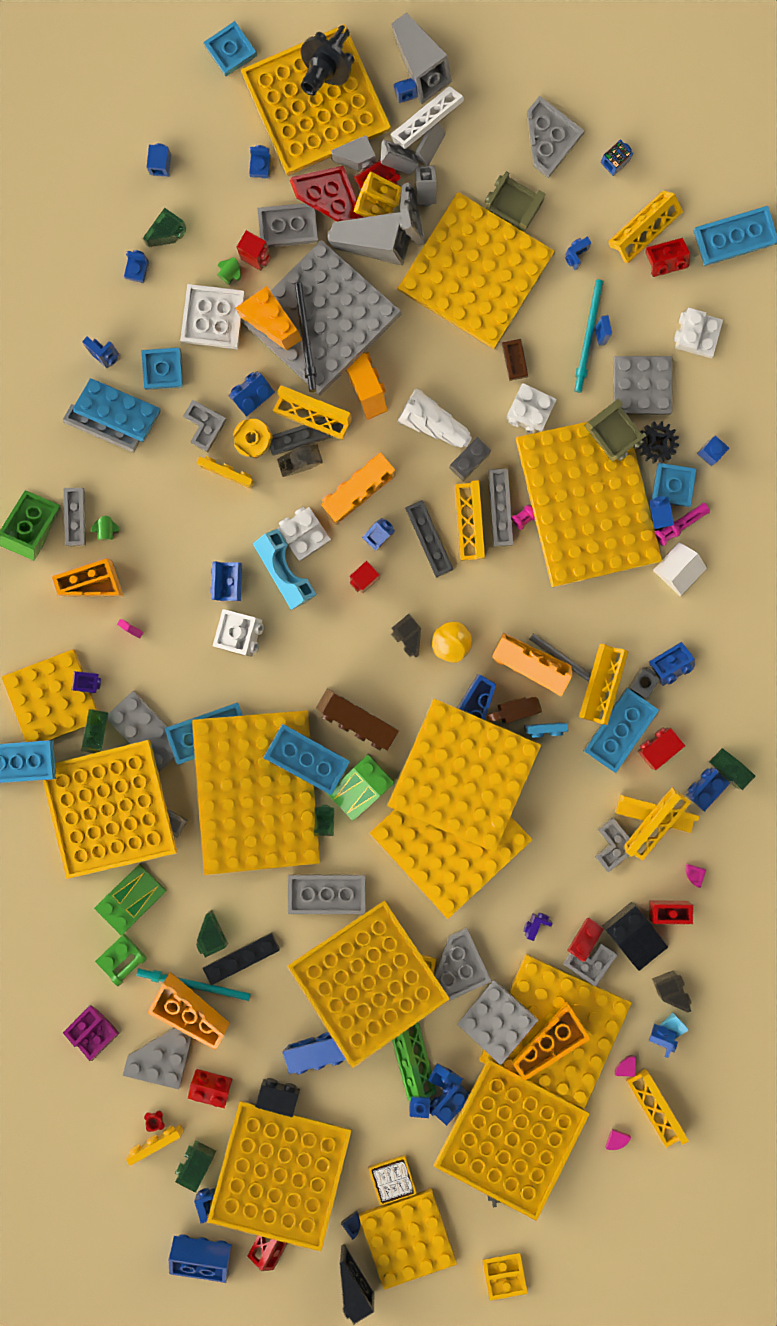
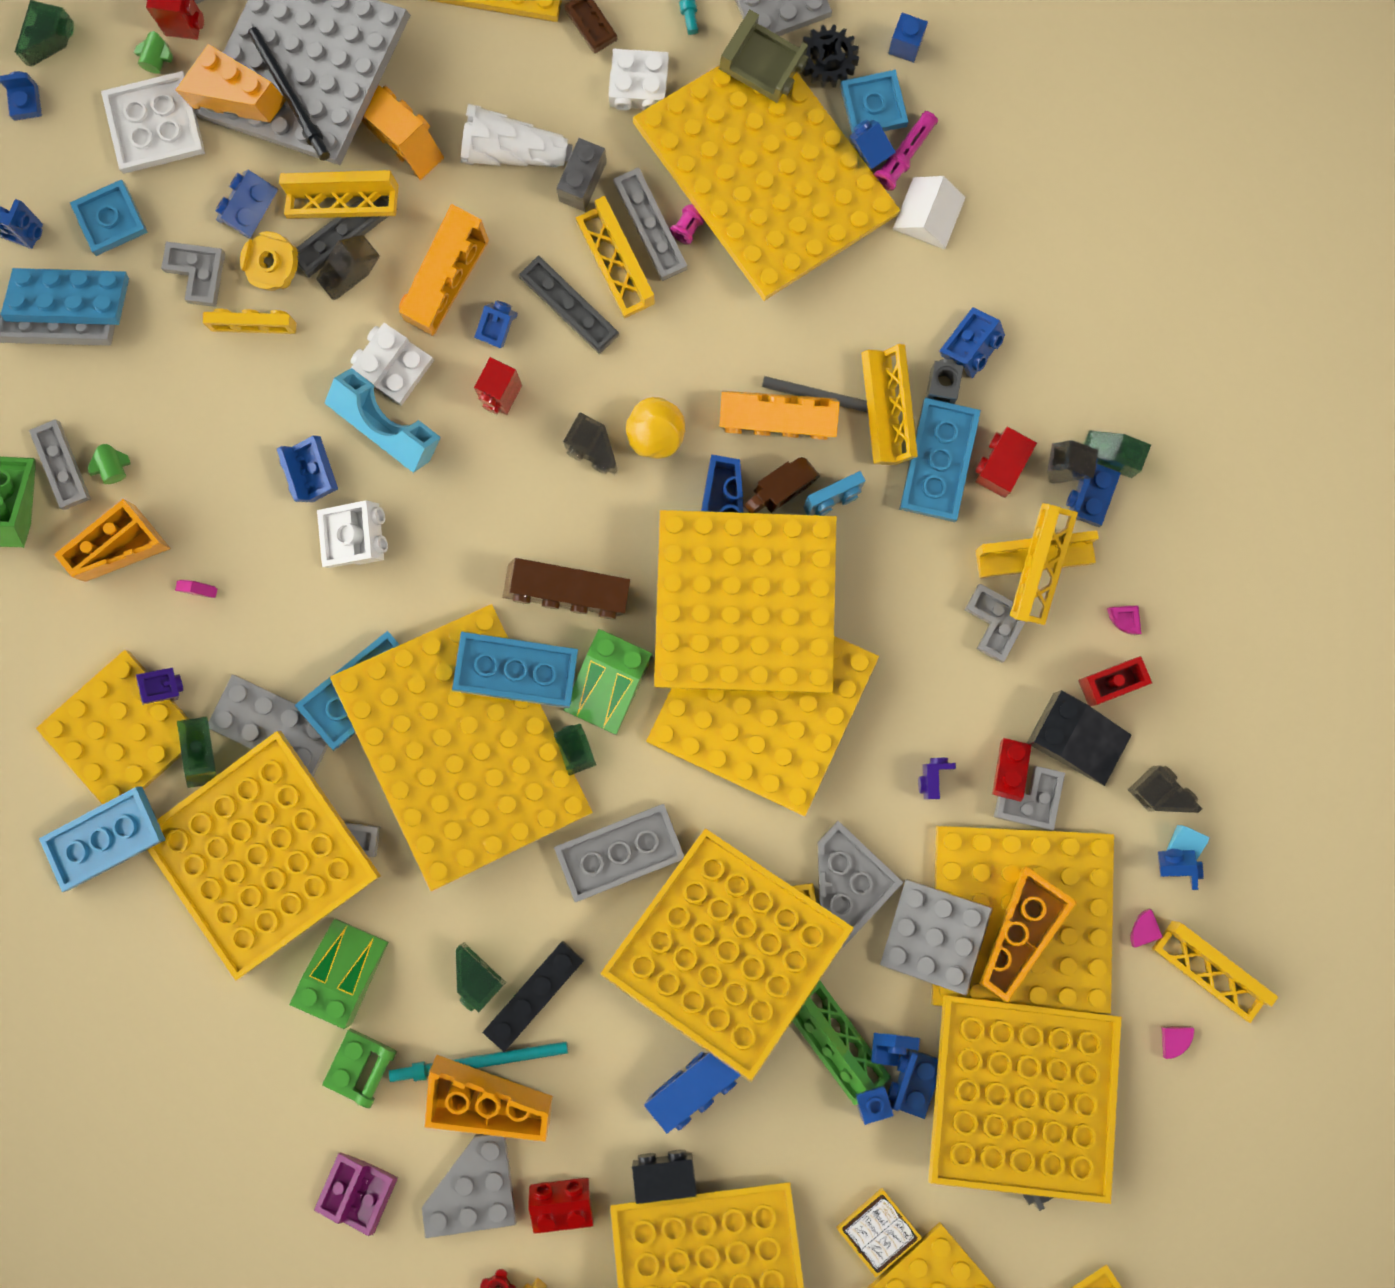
camera: 25 degrees left, 5 degrees down
(701, 768) = (1071, 461): none -> clear smoke slope

